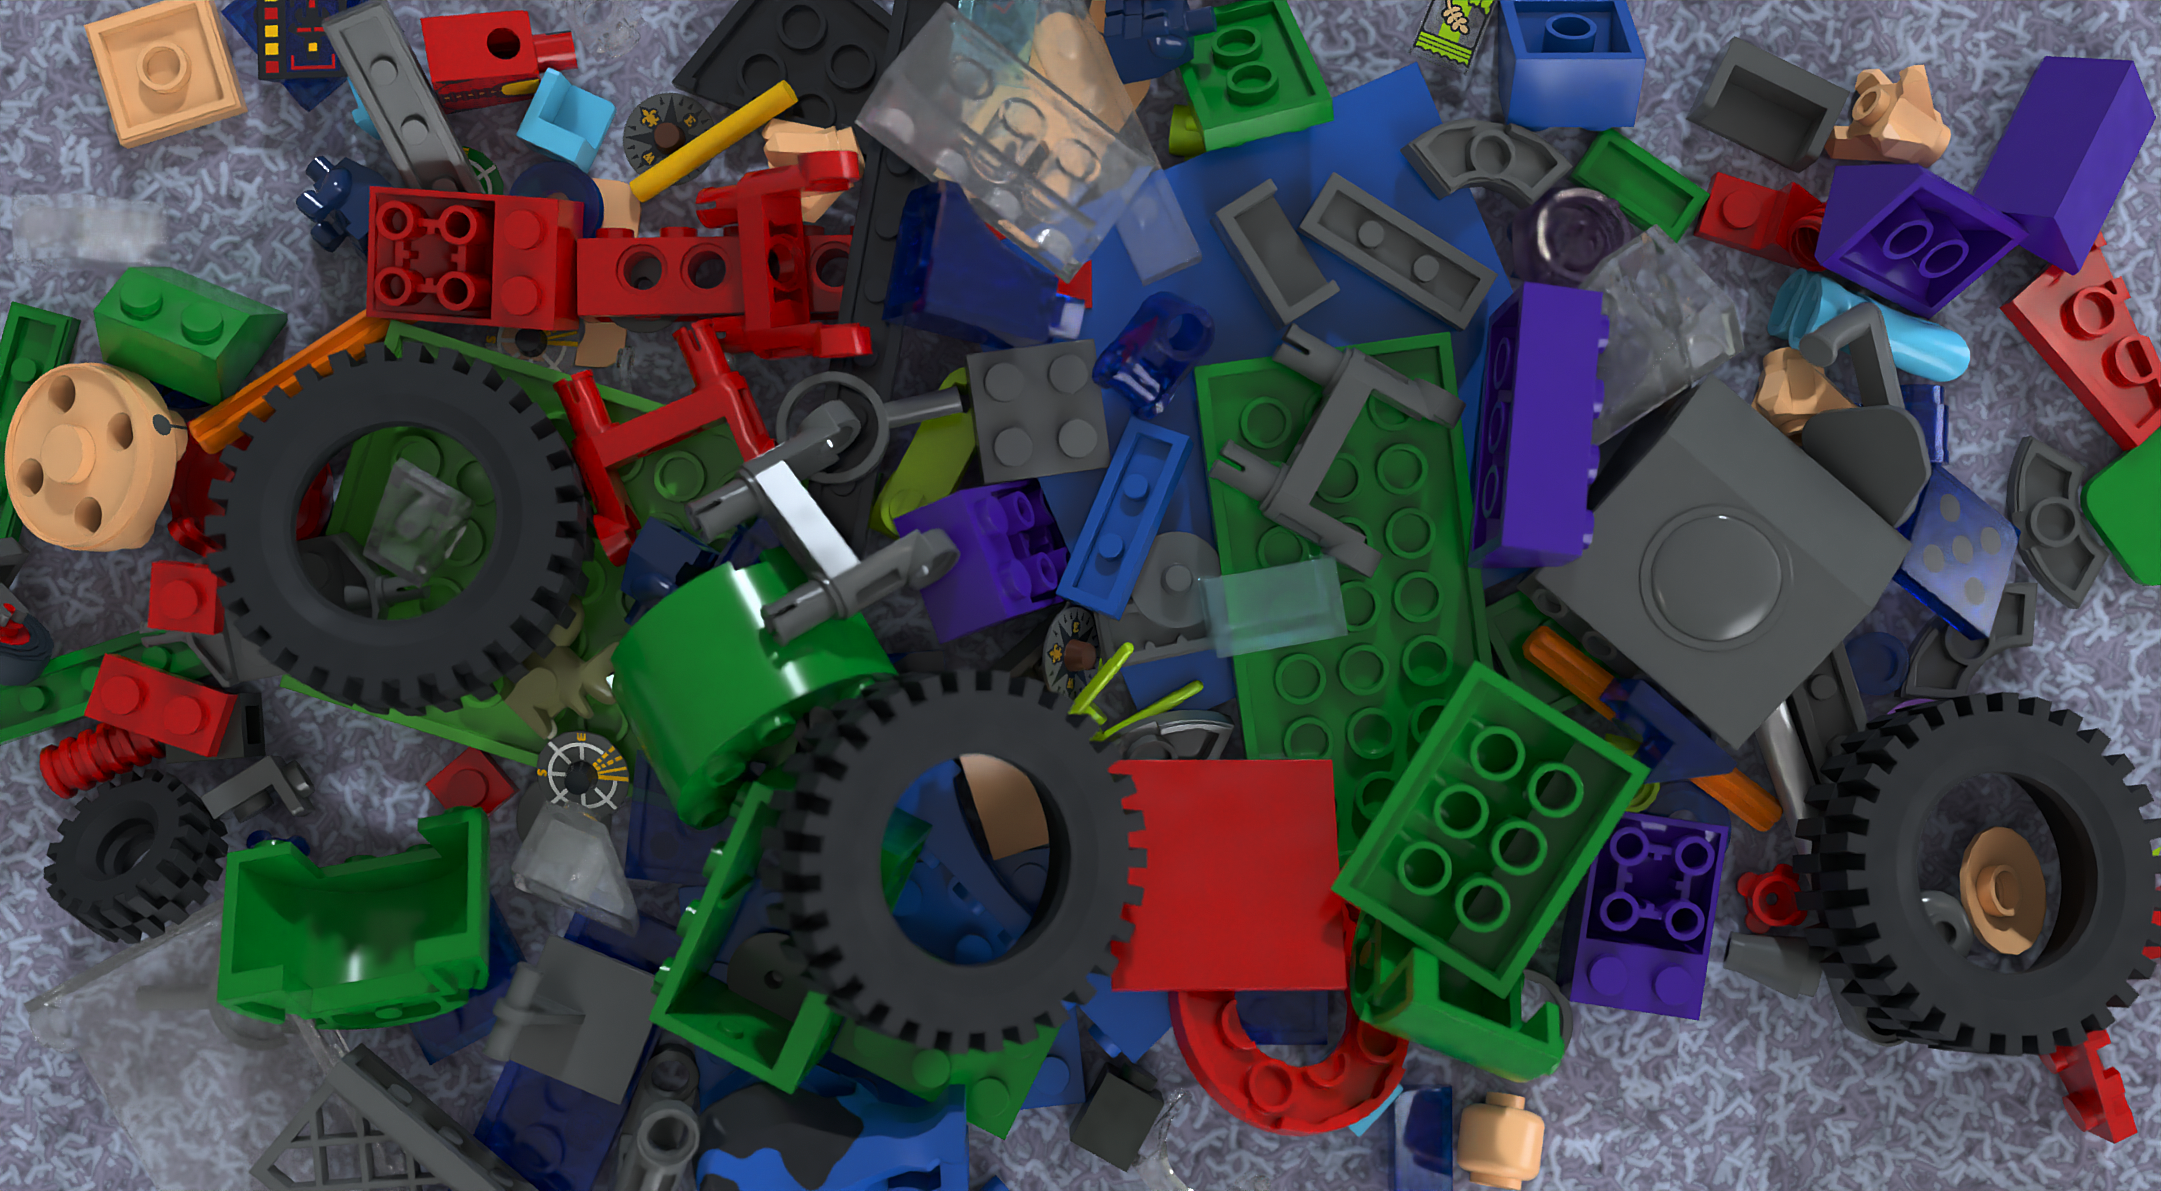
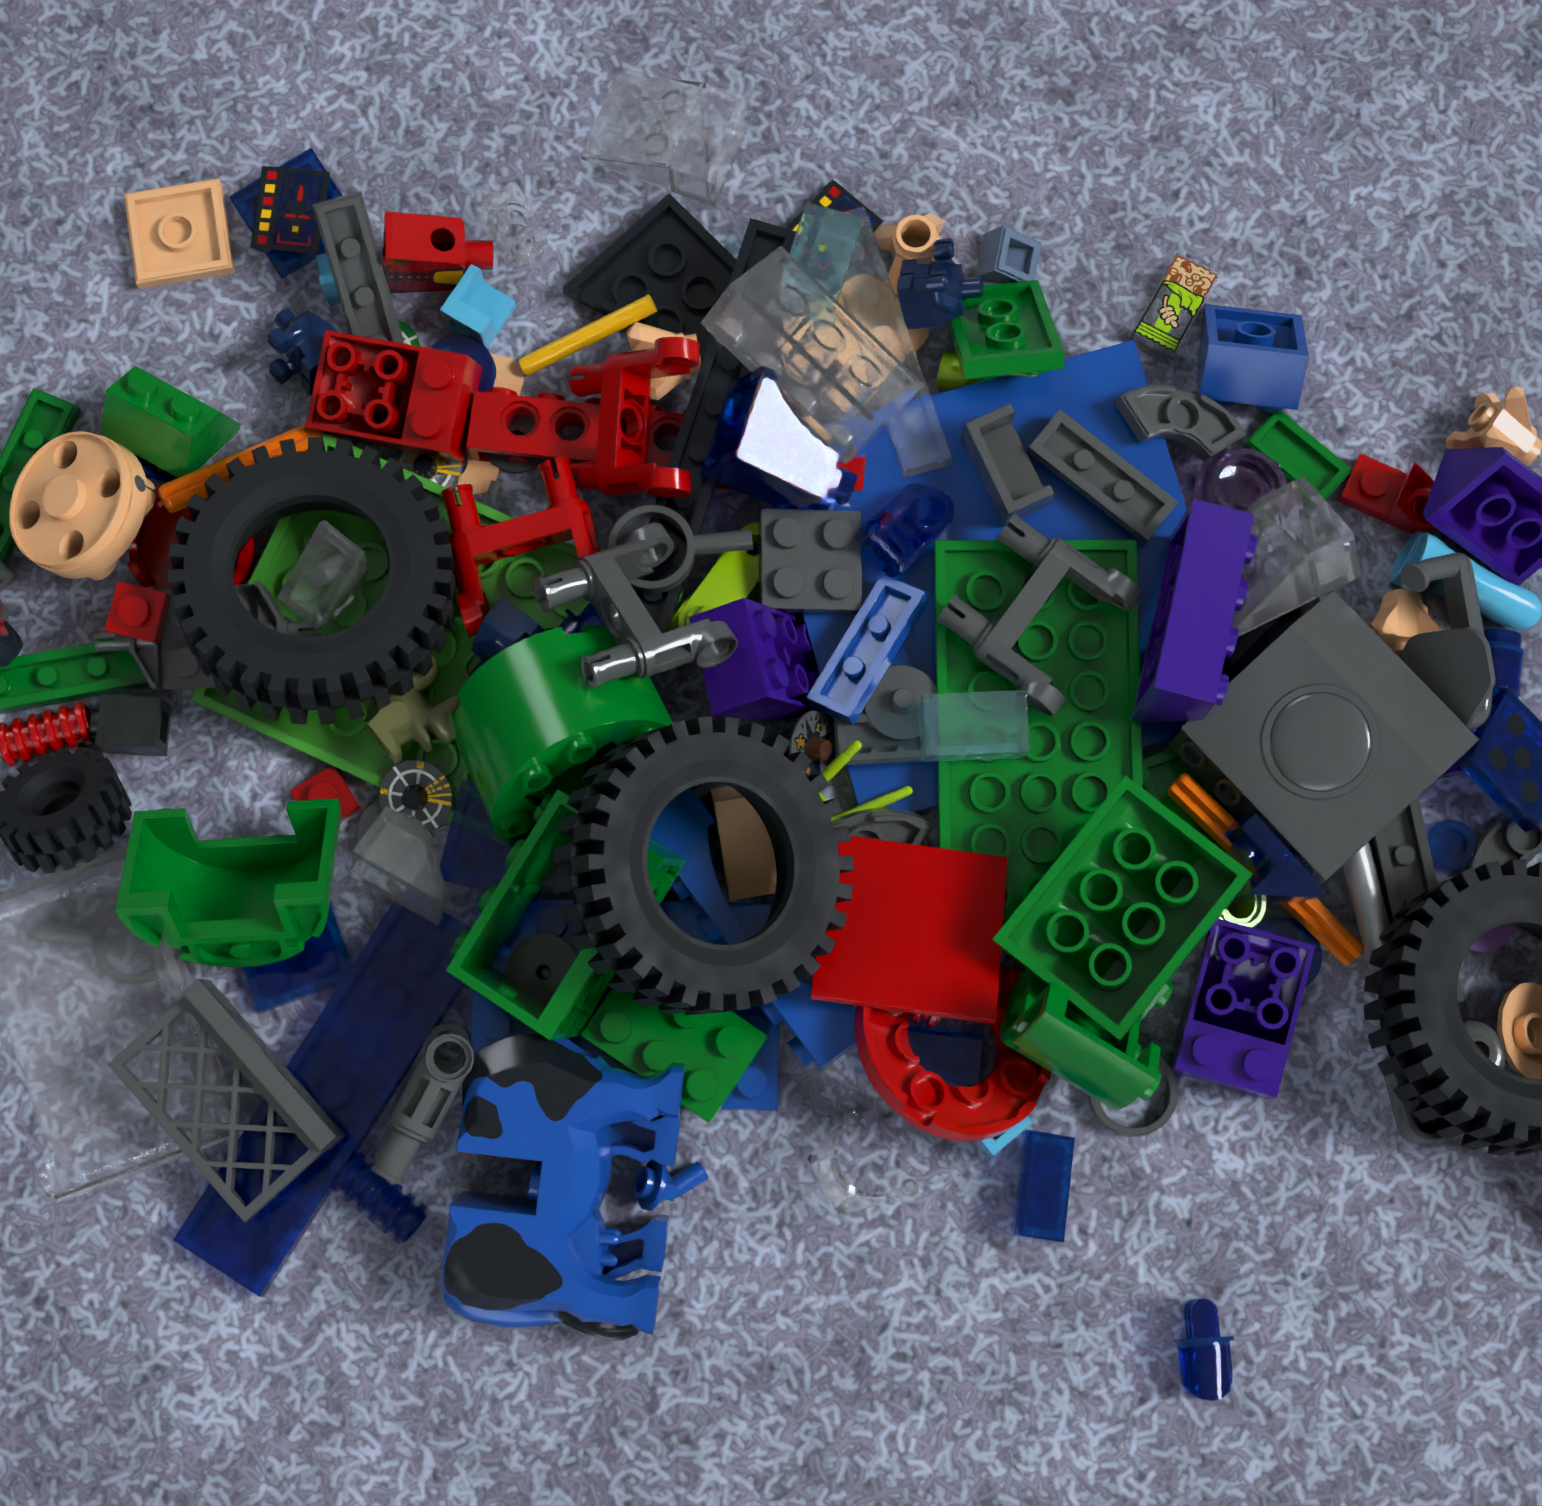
camera: 10 degrees right, 10 degrees down
(89, 232) = (101, 343): clear slope -> none
(160, 705) = (100, 696): red plate -> none
(249, 790) = (154, 775): dark grey bracket -> none
(576, 1018) = (384, 980): dark grey plate -> none
(662, 127) = (548, 322): piece -> none
(1118, 1114) = (802, 1119): pearl dark grey brick -> none
(1500, 1142) = (1108, 1184): light nougat head -> none
(1755, 888) = (1338, 1030): red plate -> none
(1767, 105) = (1403, 407): dark grey panel -> none
(1776, 962) = (1346, 1069): dark grey cone -> none

